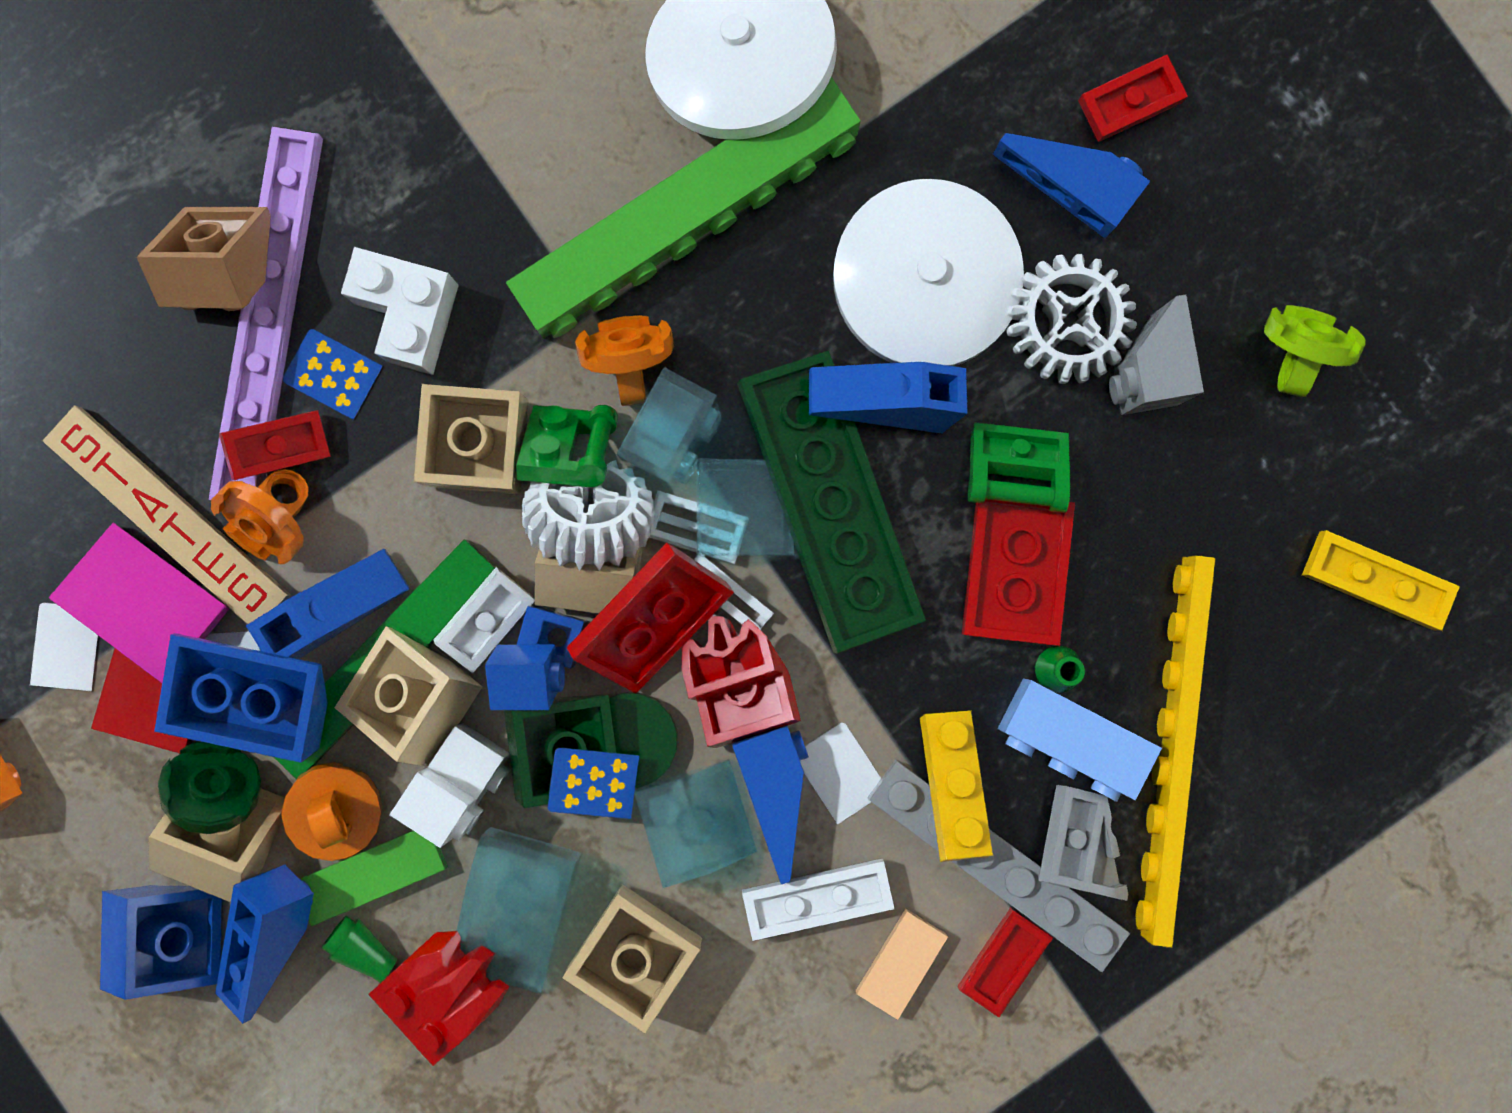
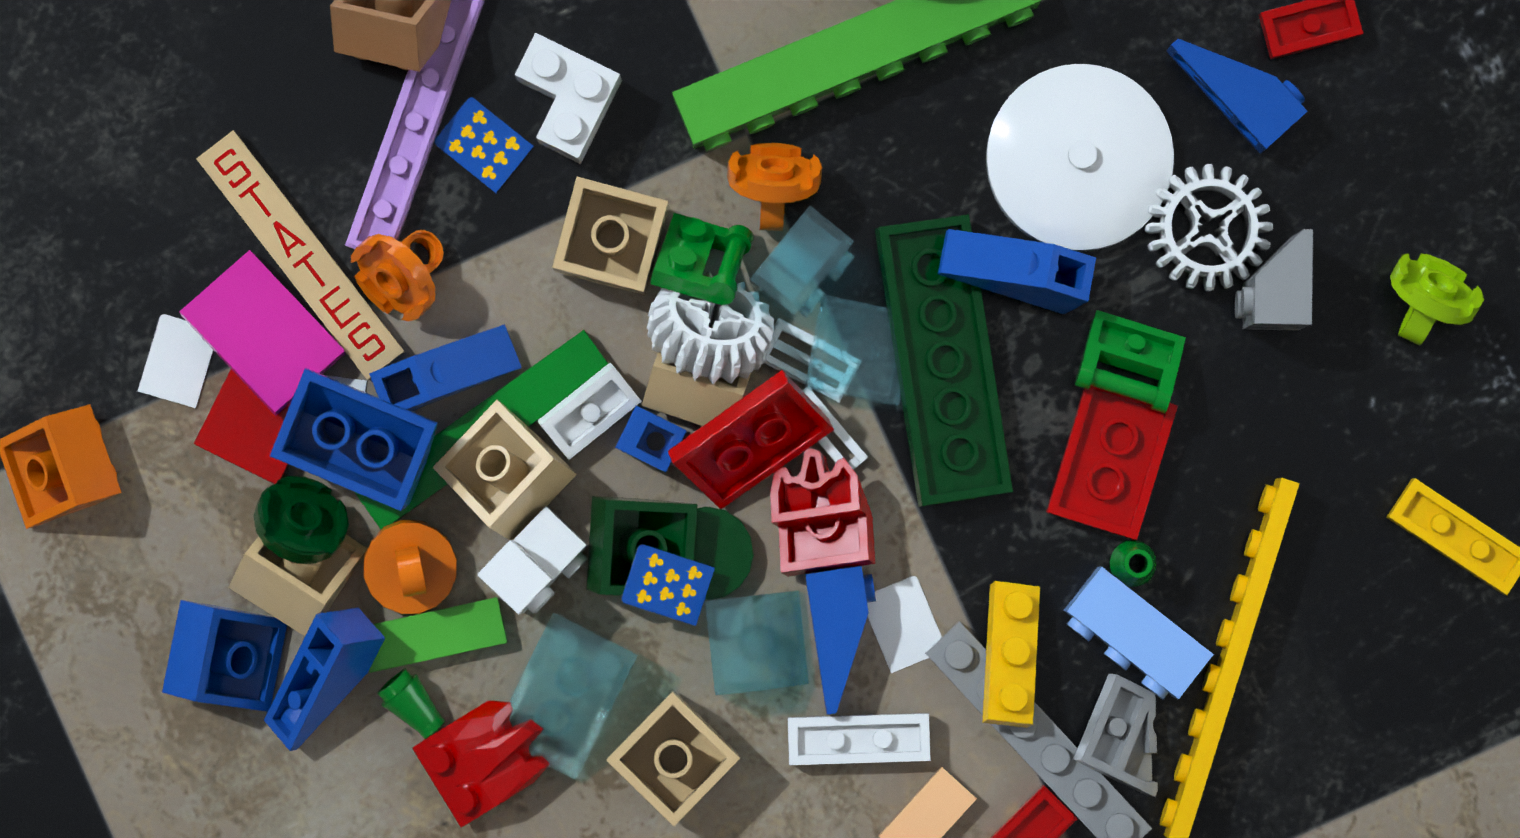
camera: 15 degrees right, 0 degrees up
(274, 445) = (421, 205): red plate -> none
(524, 677) = (622, 471): blue brick -> none

